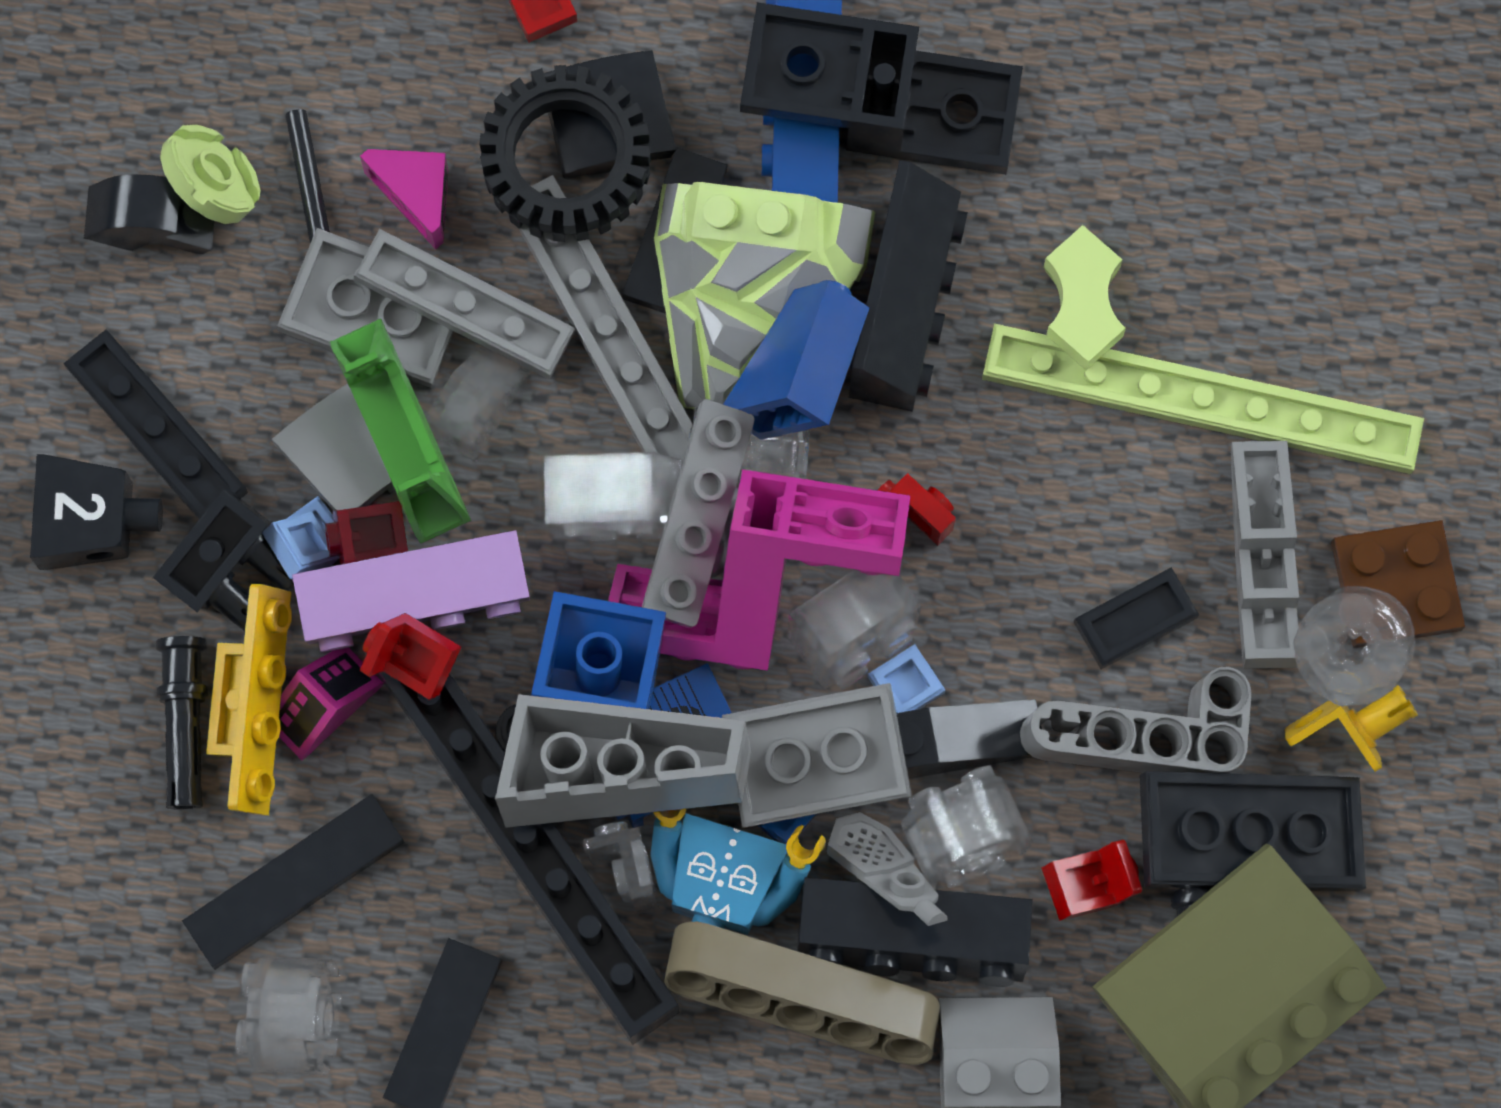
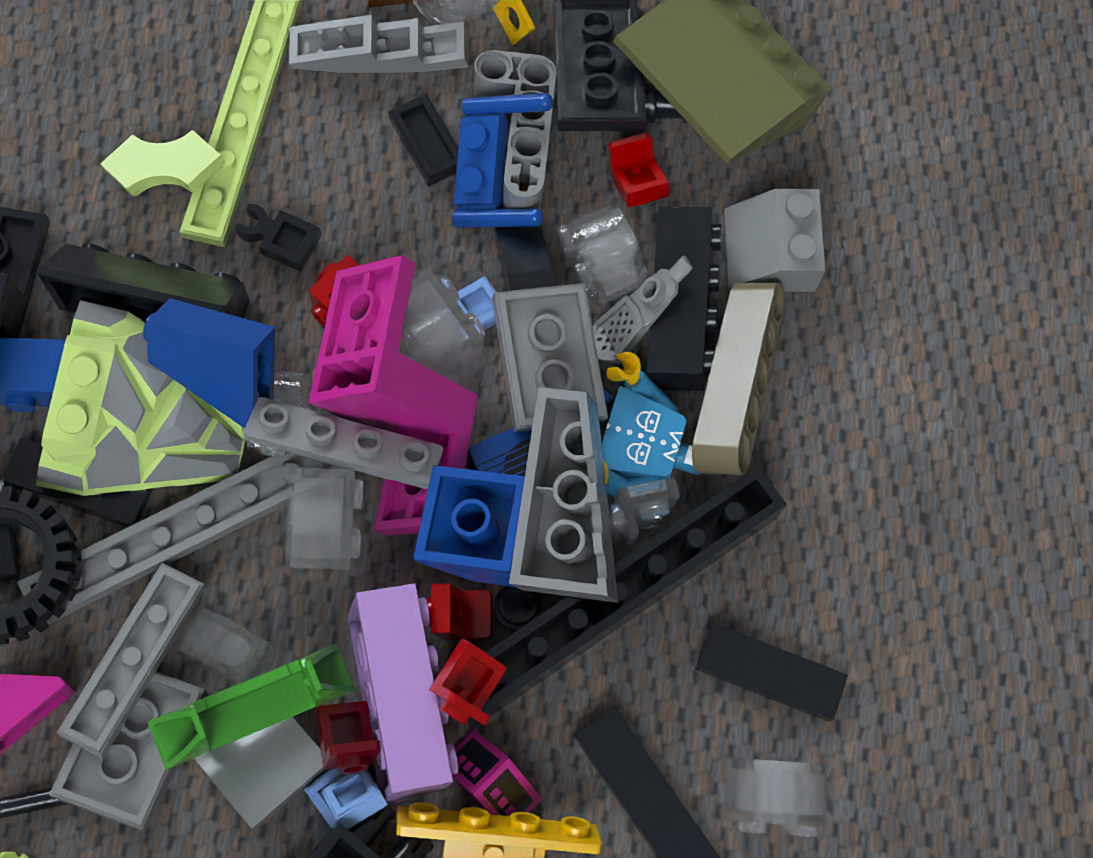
camera: 95 degrees left, 5 degrees down
(510, 655) = (460, 613): none -> red bracket
(988, 446) = (283, 239): none -> black plate
(1096, 679) = (482, 161): none -> blue plate

